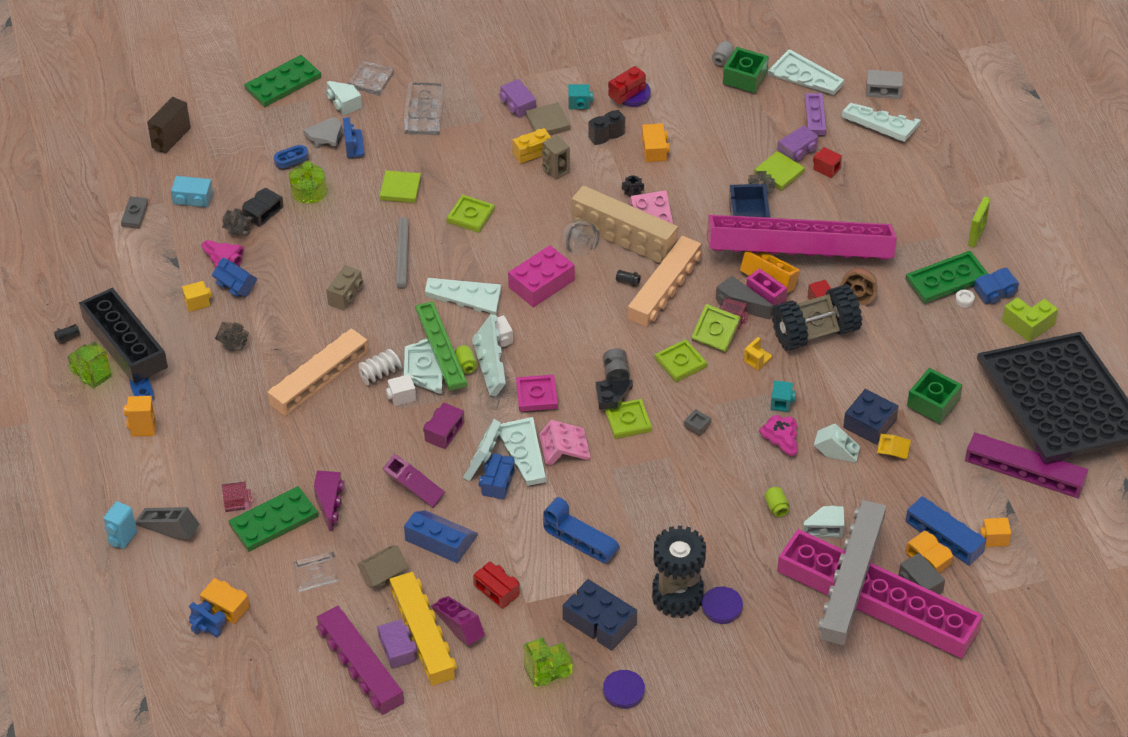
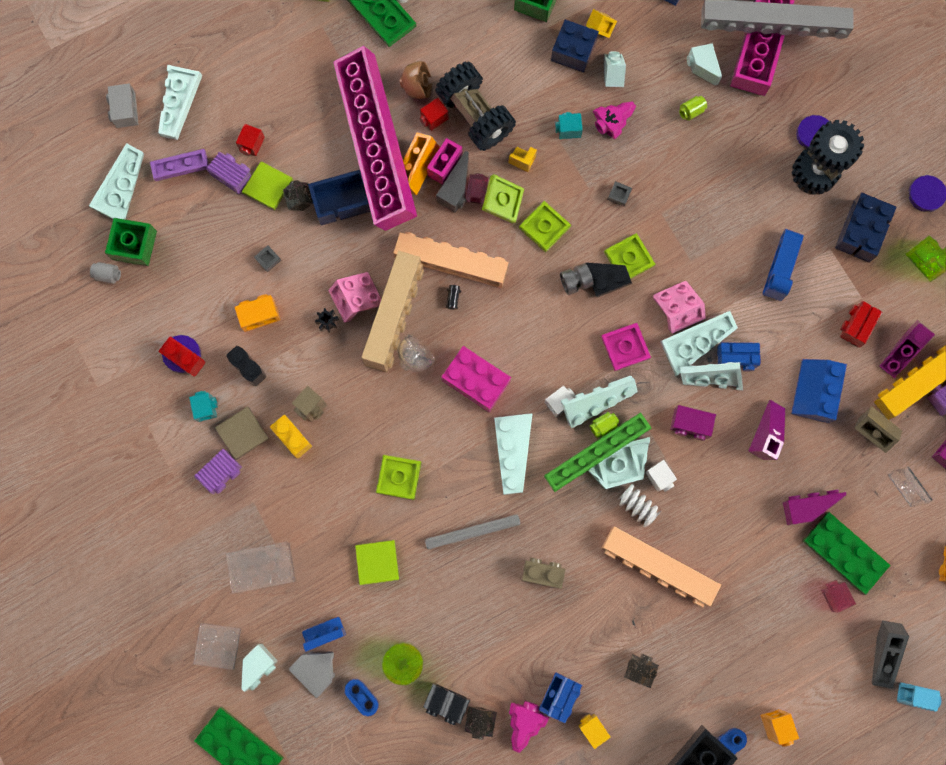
camera: 105 degrees left, 30 degrees up
(705, 158) = (267, 258): none -> dark grey plate

